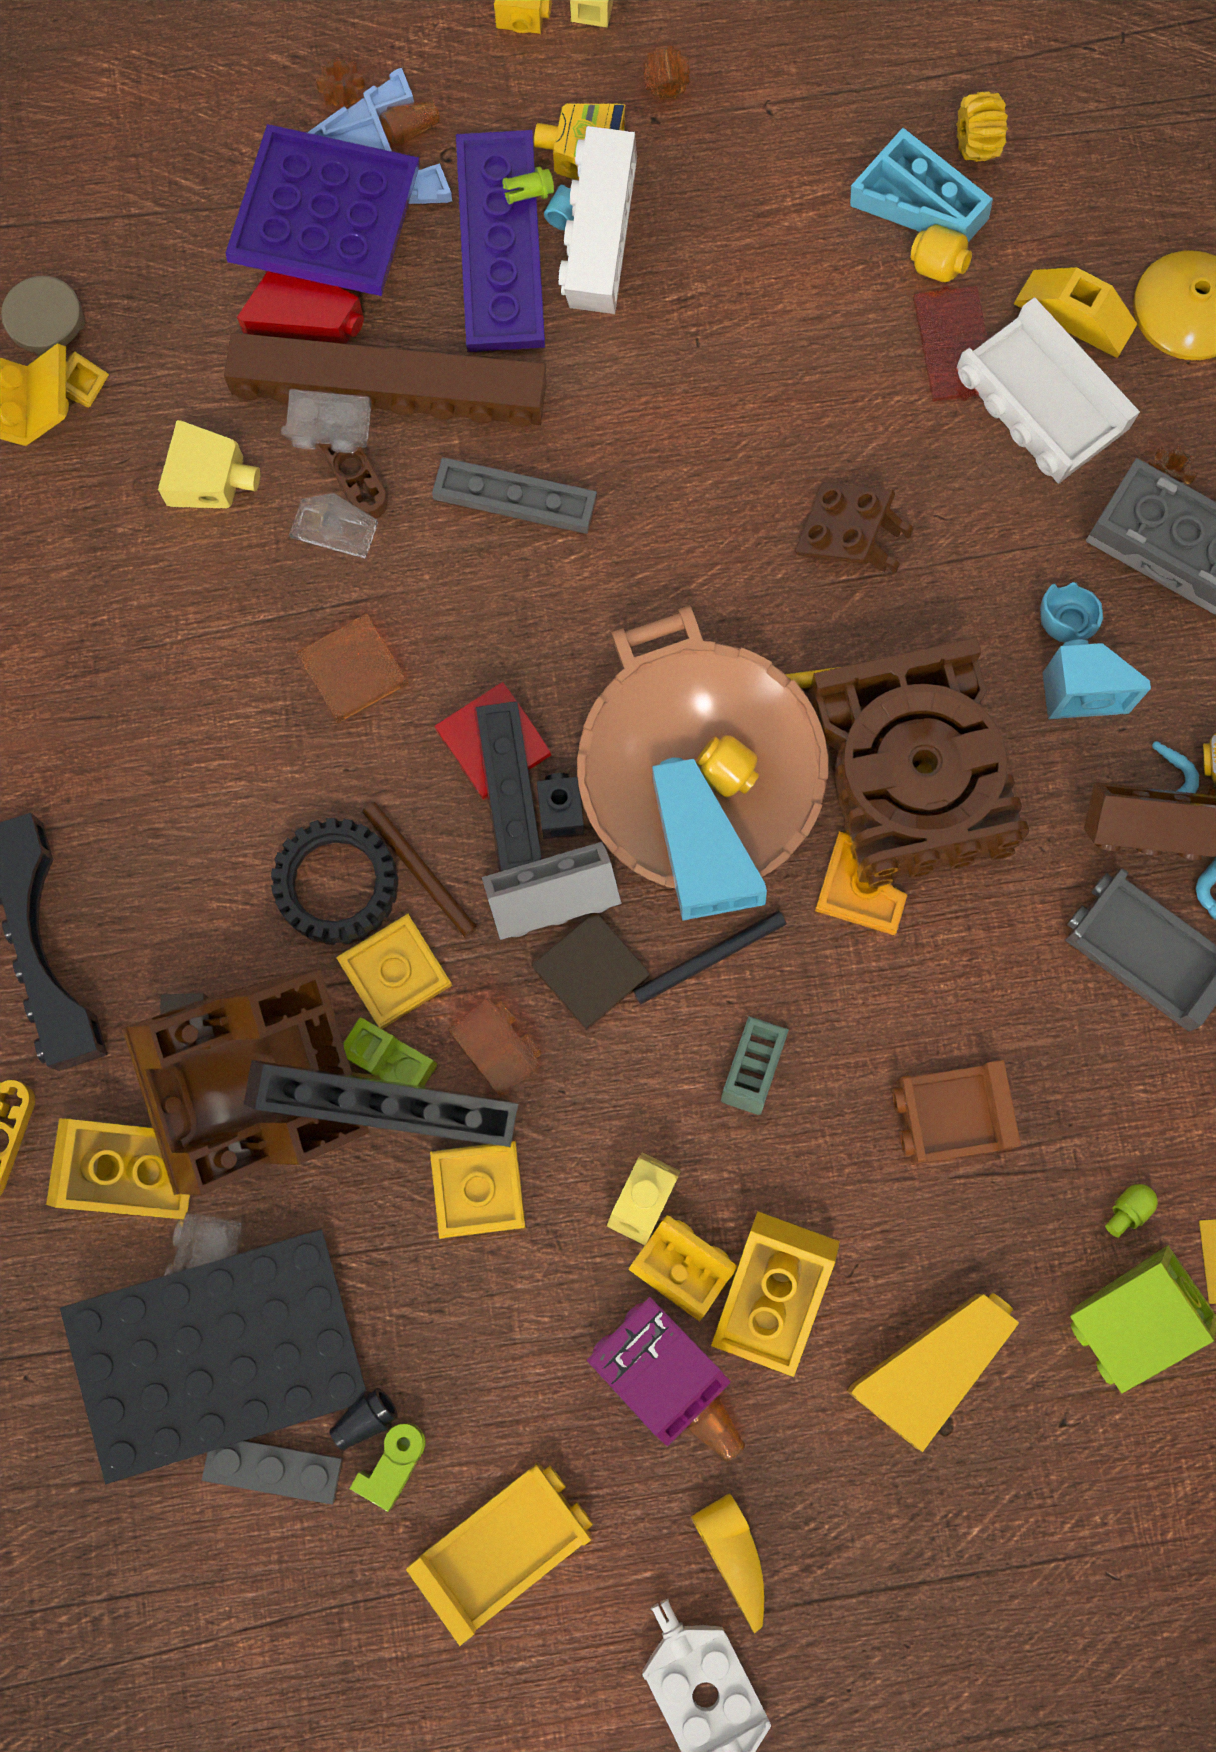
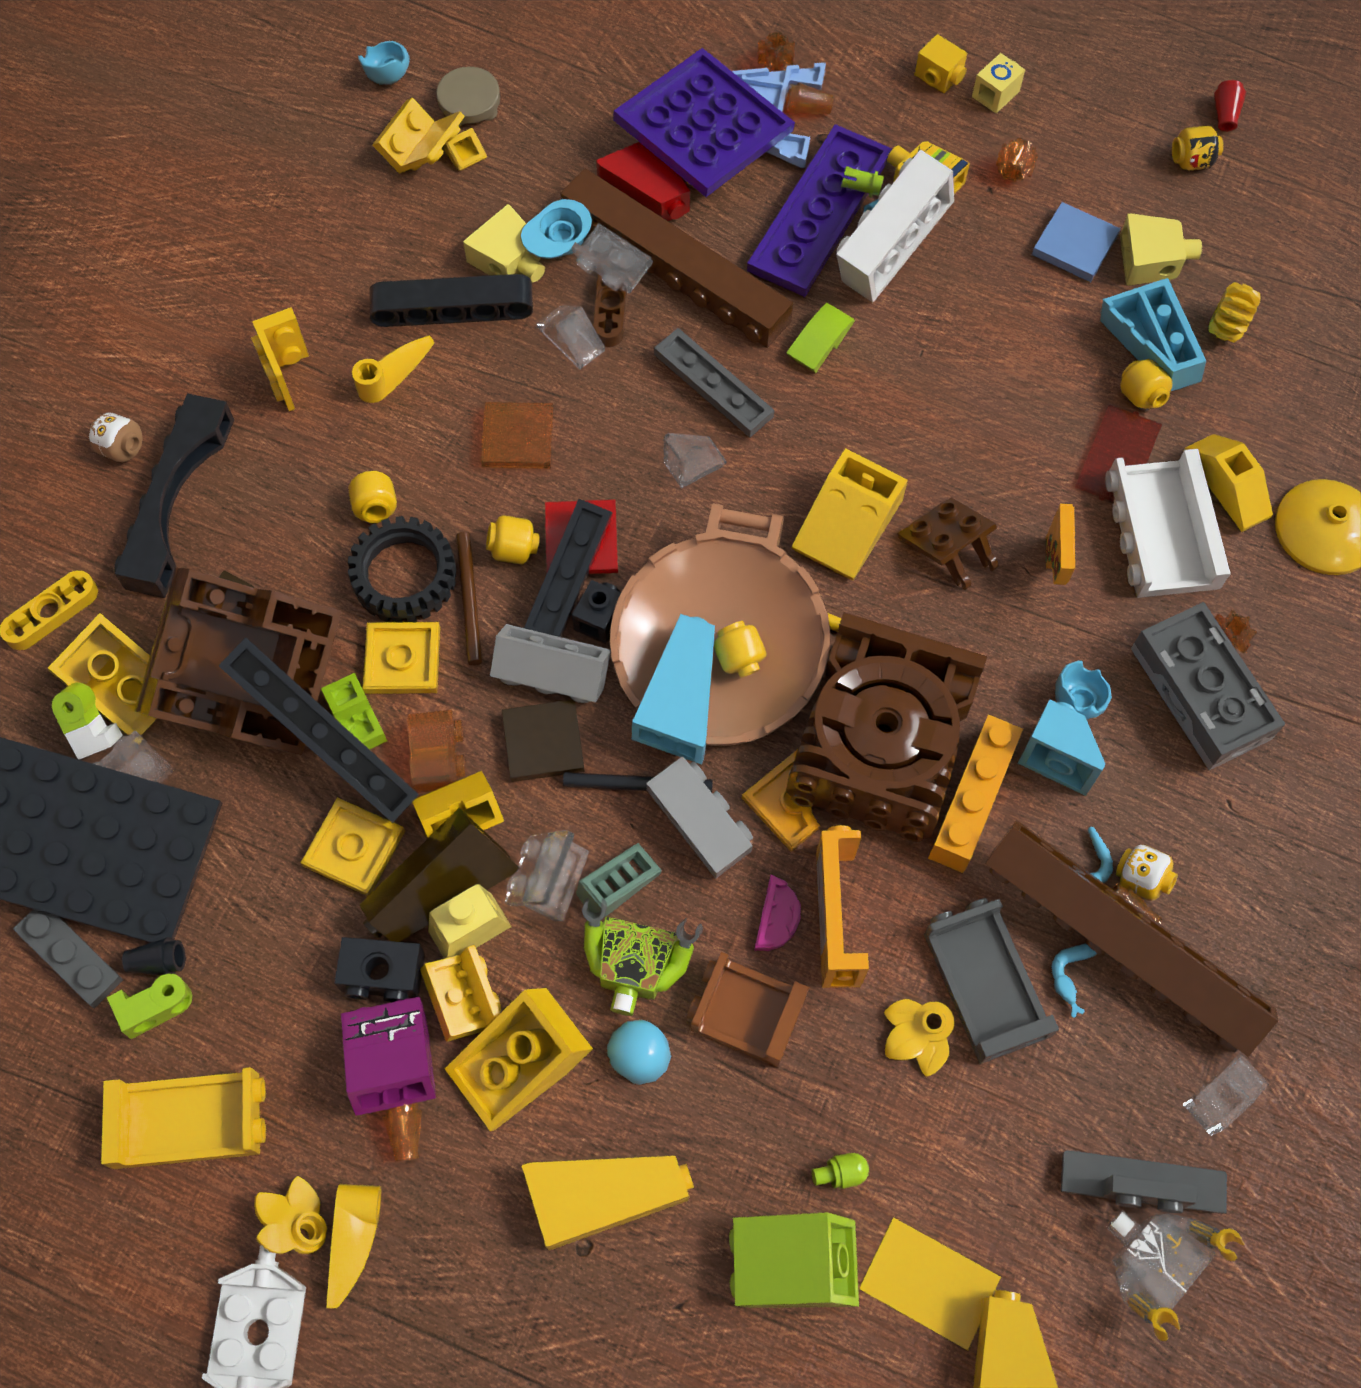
camera: 30 degrees right, 10 degrees down
(38, 715) = (279, 344): none -> yellow bracket
(127, 1237) = (82, 721): none -> leg
(172, 673) = (379, 378): none -> yellow piece
(184, 561) = (451, 300): none -> black beam
(248, 419) = (557, 229): none -> medium azure piece
(252, 823) = (372, 496): none -> yellow head
(424, 784) = (512, 539): none -> yellow head
(545, 590) = (691, 457): none -> clear slope
(561, 1092) = (470, 794): none -> yellow brick
(562, 1294) = (361, 956): none -> black brick
(587, 1174) = (437, 871): none -> dark brown slope
(590, 383) = (820, 336): none -> lime slope
(662, 1577) = (286, 1216): none -> yellow plate
(684, 1102) = (547, 874): none -> clear bracket
(742, 560) = (850, 514): none -> yellow slope
(777, 131) = (1076, 241): none -> medium blue tile
(796, 956) = (700, 816): none -> light grey brick
(822, 1130) = (635, 957): none -> torso
(861, 97) = (1155, 248): none -> light yellow torso
(879, 1215) = (639, 1051): none -> medium azure hair
(924, 1005) = (779, 916): none -> dark pink tile
(968, 477) = (1061, 545): none -> light orange tile
(976, 971) = (837, 967): none -> light orange panel
(1037, 773) = (975, 794): none -> light orange brick
(1118, 1044) = (914, 1037): none -> yellow plate

